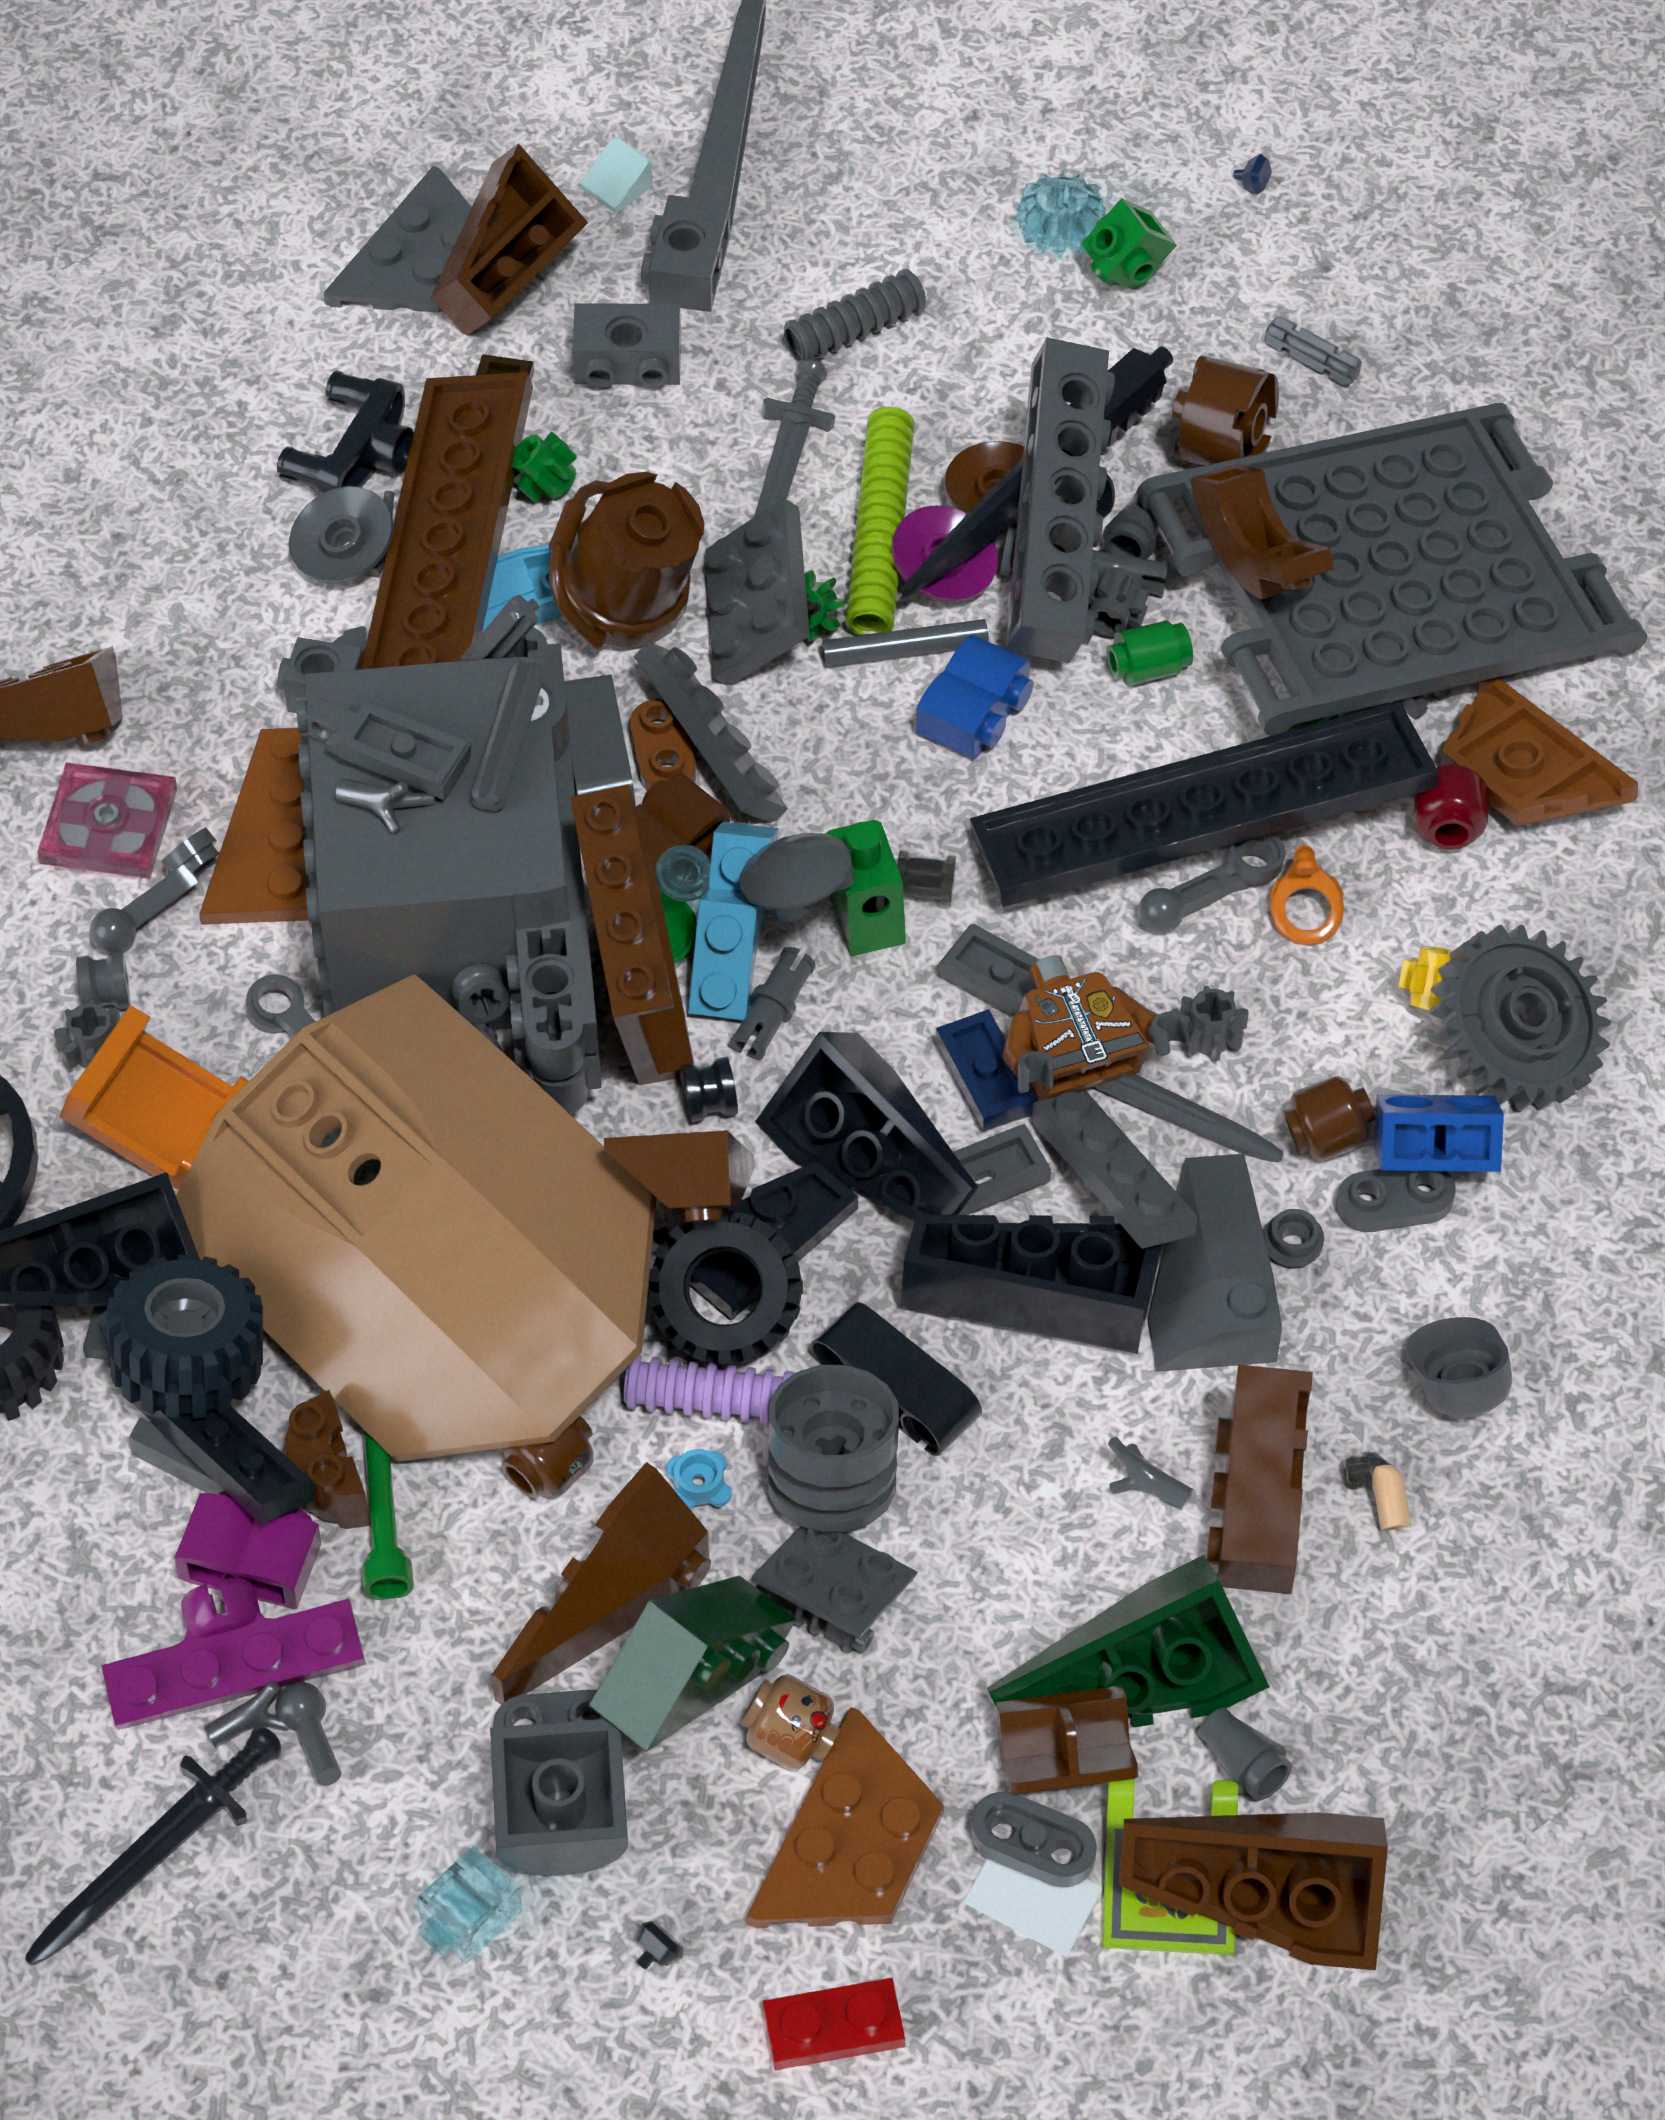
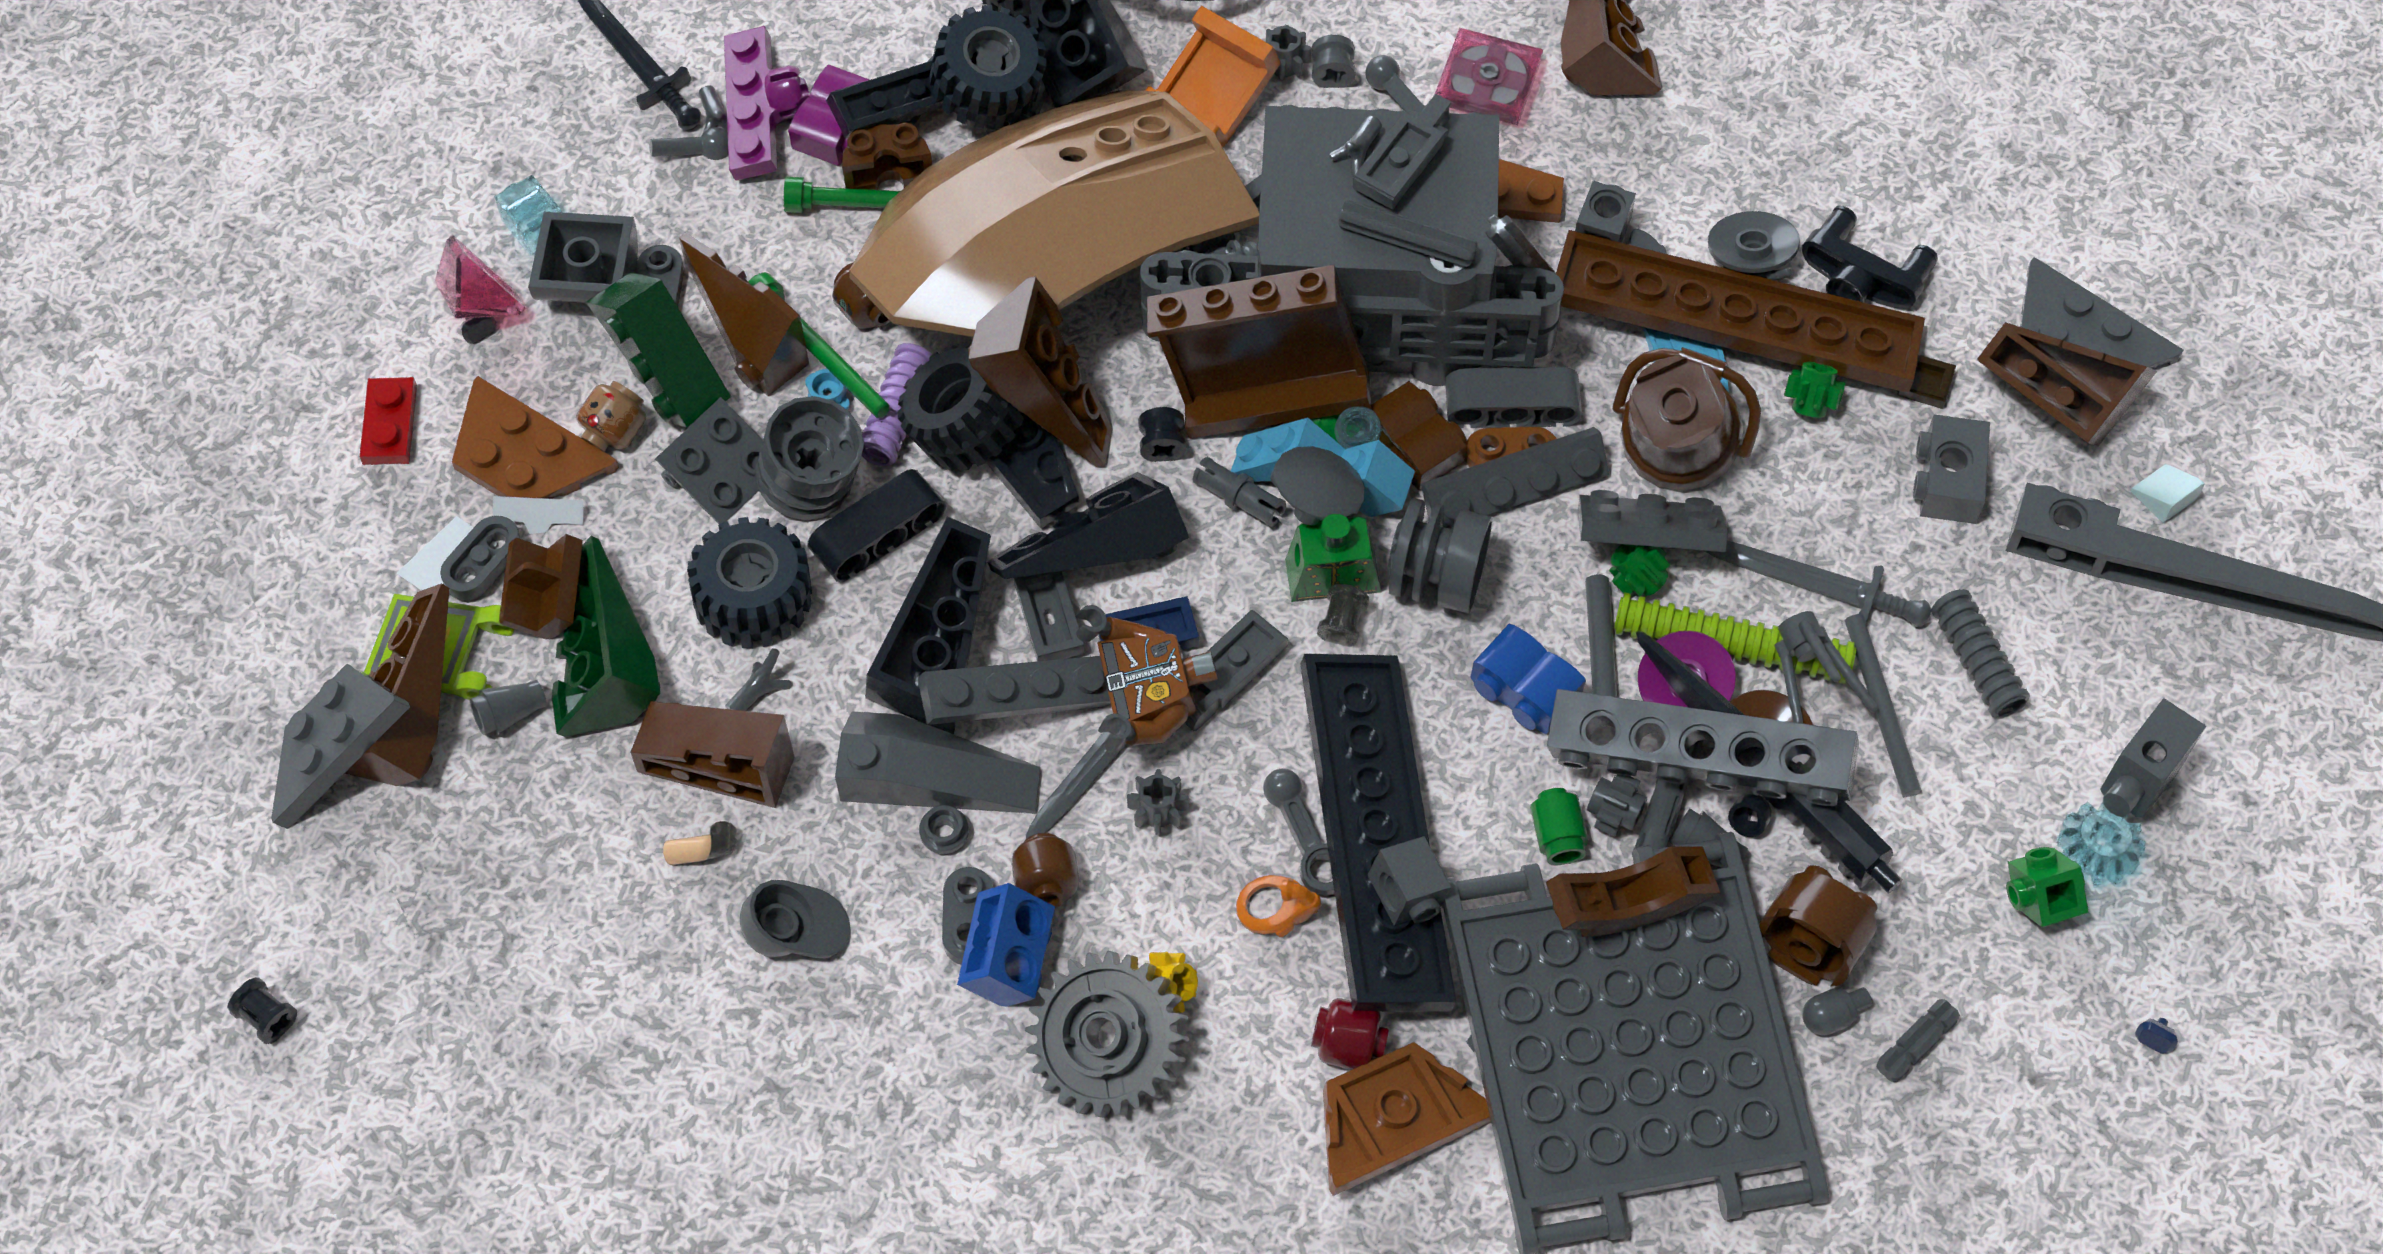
camera: 100 degrees right, 5 degrees up
(615, 1948) = (472, 286): none -> clear pink slope
(667, 1462) = (832, 359): none -> green piece
(844, 767) = (1439, 555): none -> dark grey wheel
(897, 433) = (1806, 641): none -> dark grey plant
(935, 394) = (1885, 713): none -> dark grey bar
(949, 1789) = (539, 512): none -> white sticker
(975, 161) = (2137, 778): none -> dark grey torso
(1015, 1496) = (750, 582): none -> black wheel
(1283, 739) = (1409, 881): none -> dark grey brick
(1302, 416) = (1834, 1010): none -> dark grey cylinder
(1356, 1927) = (330, 738): none -> dark grey wing

